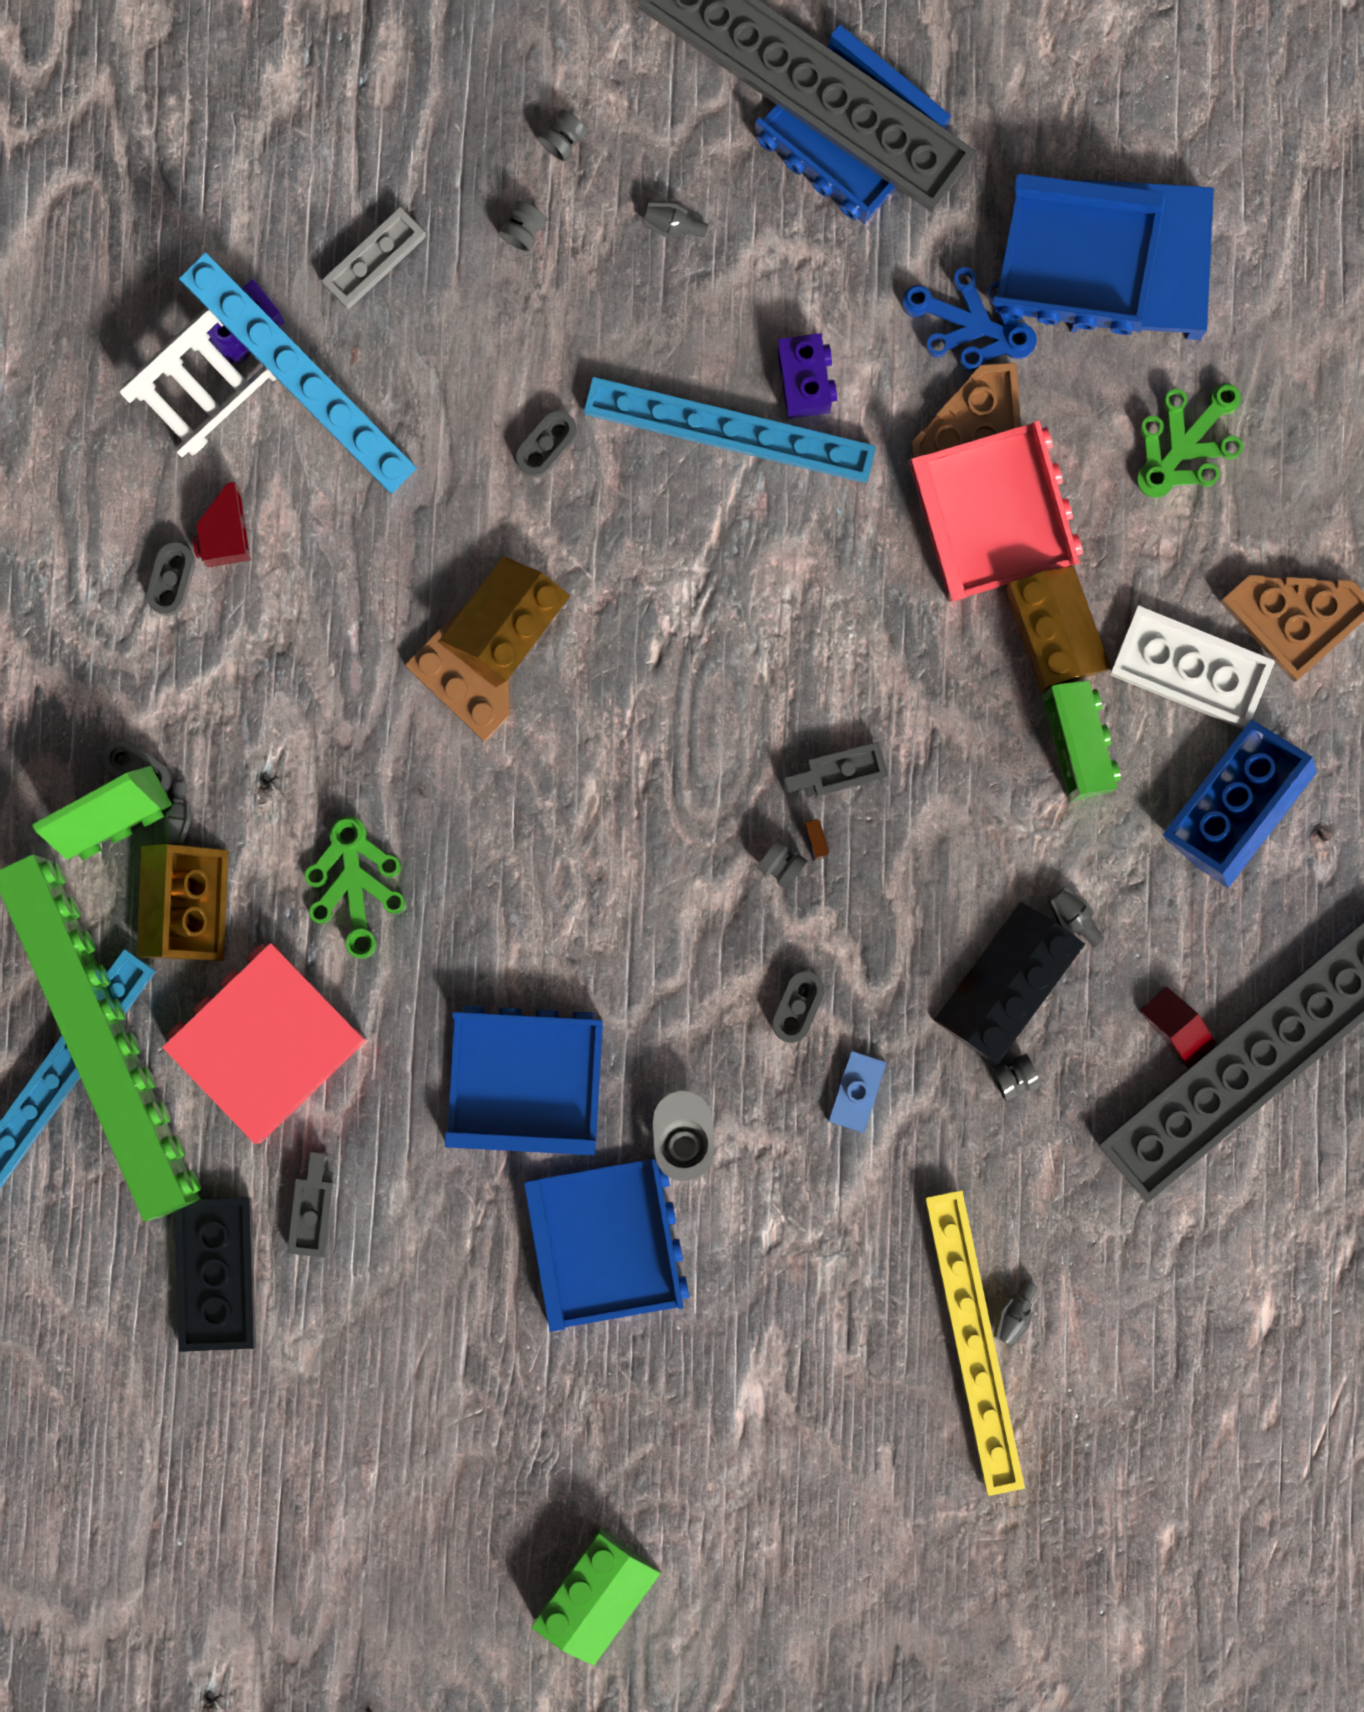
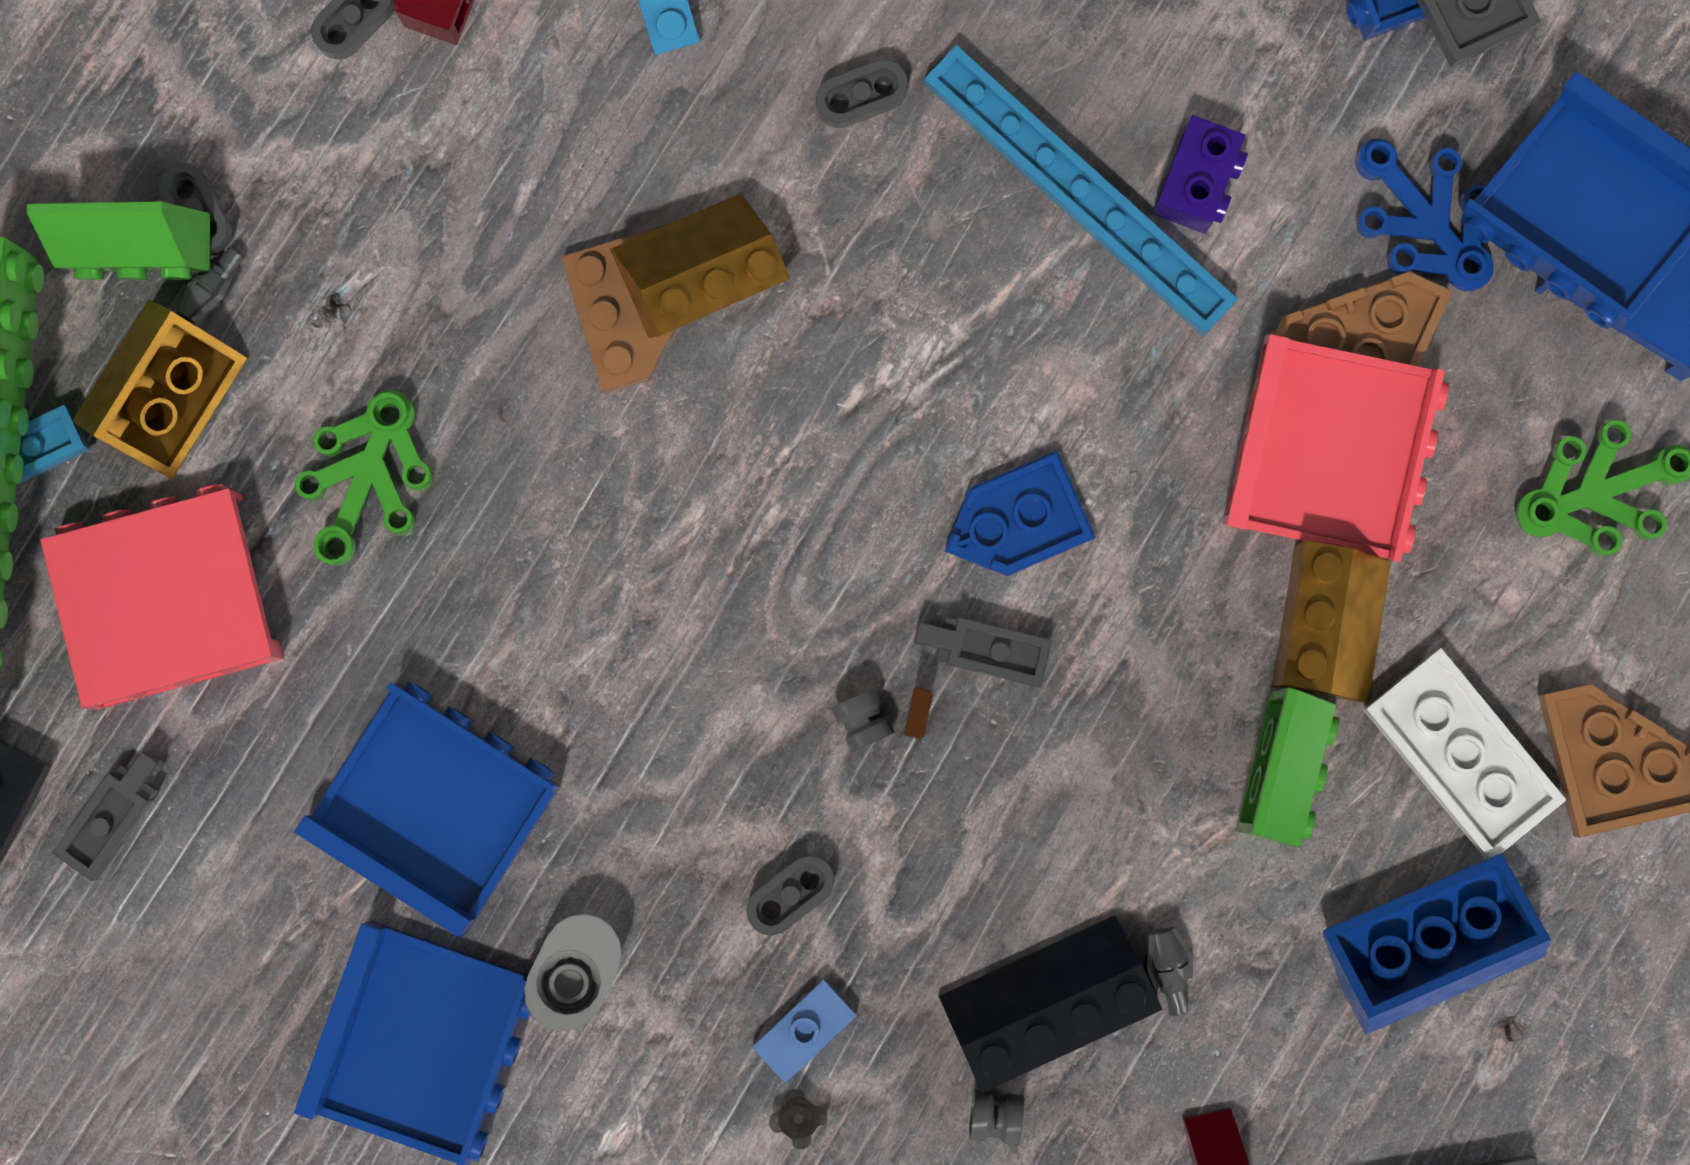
camera: 30 degrees right, 0 degrees up
(812, 672) = (1020, 518): none -> blue tile
(893, 1144) = (784, 1119): none -> clear smoke plate

